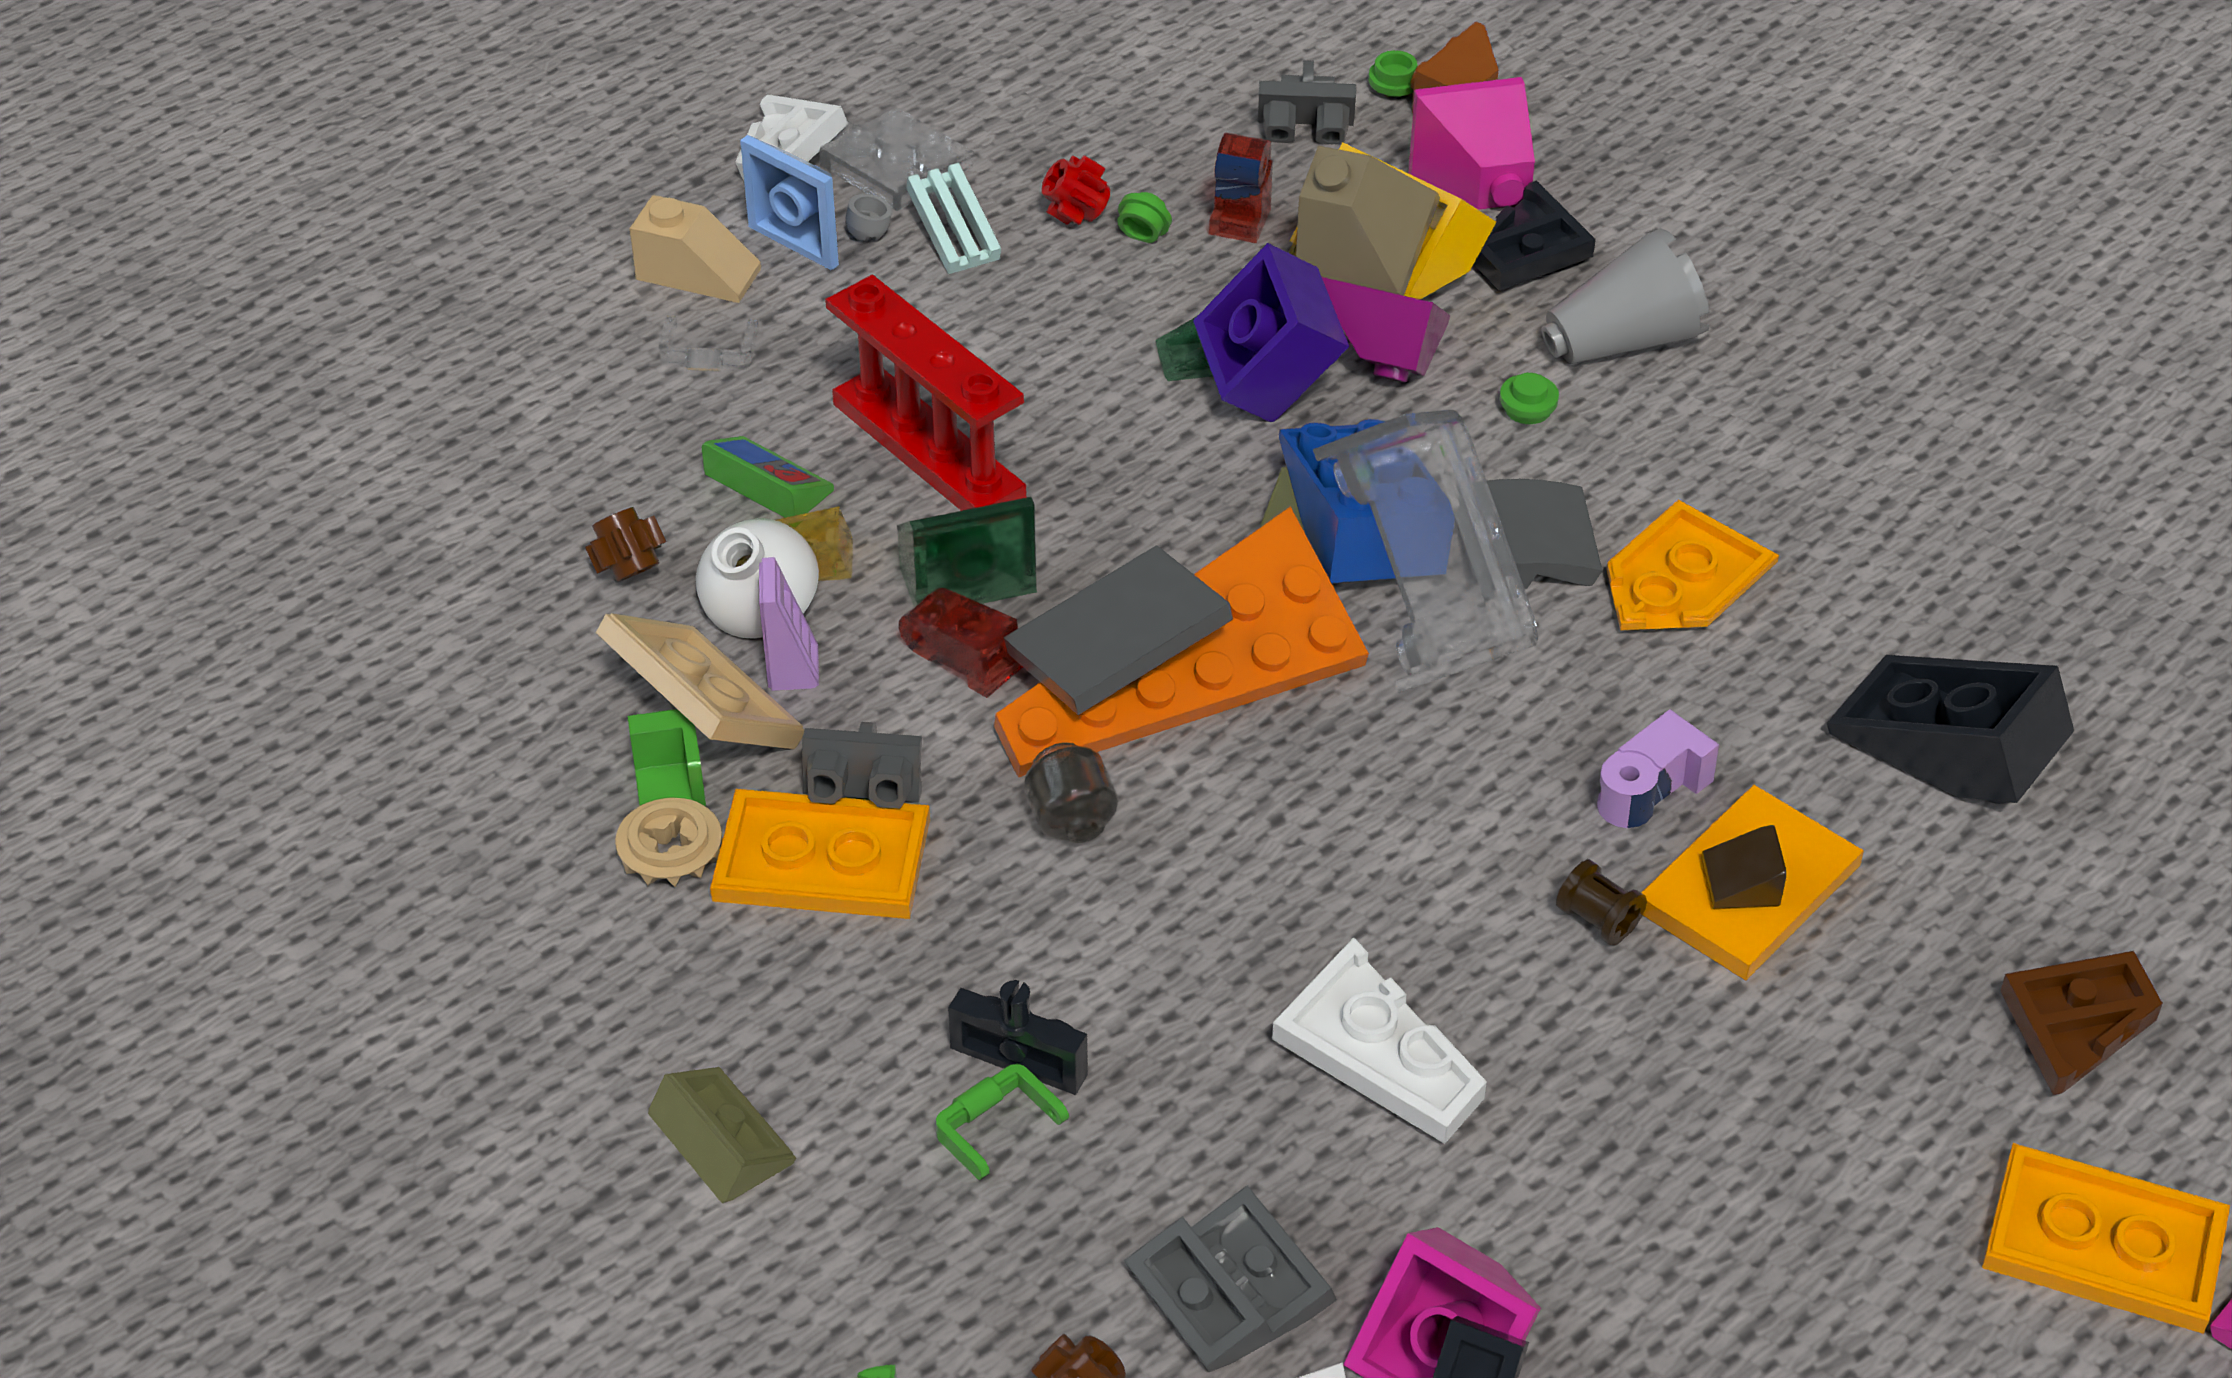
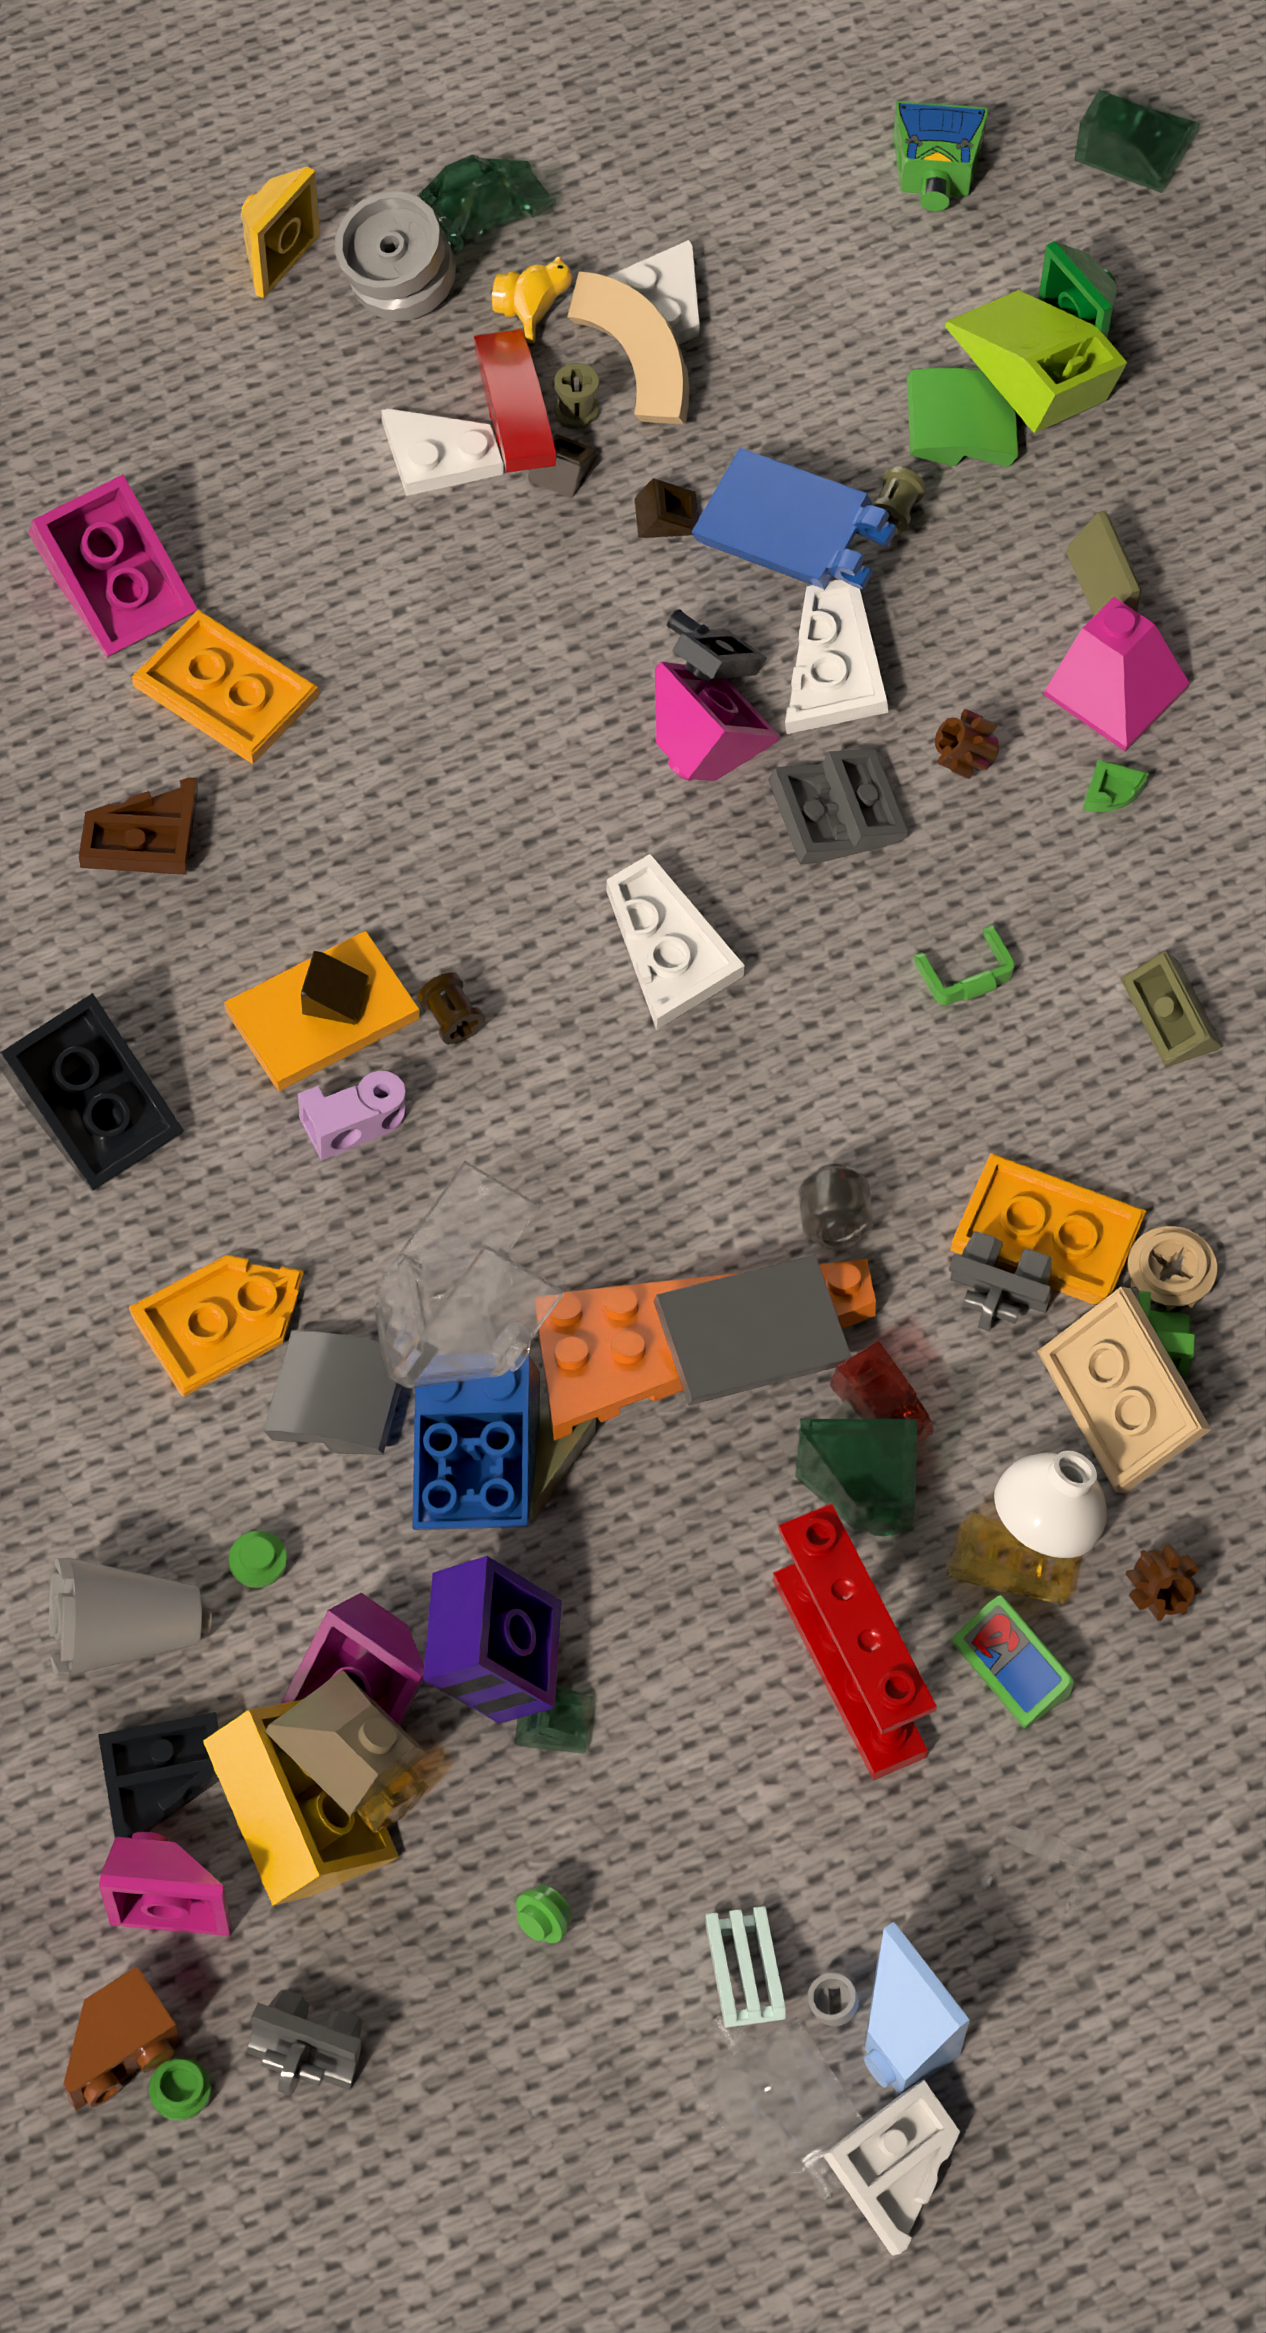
camera: 165 degrees left, 15 degrees up
(690, 250) = (1033, 1987): tan slope -> none
(787, 638) = (1038, 1419): lavender slope -> none
(1008, 1034) = (938, 1002): black plate -> none
(1076, 190) = (604, 1964): red gear -> none
(1241, 187) = (432, 1902): clear red leg -> none

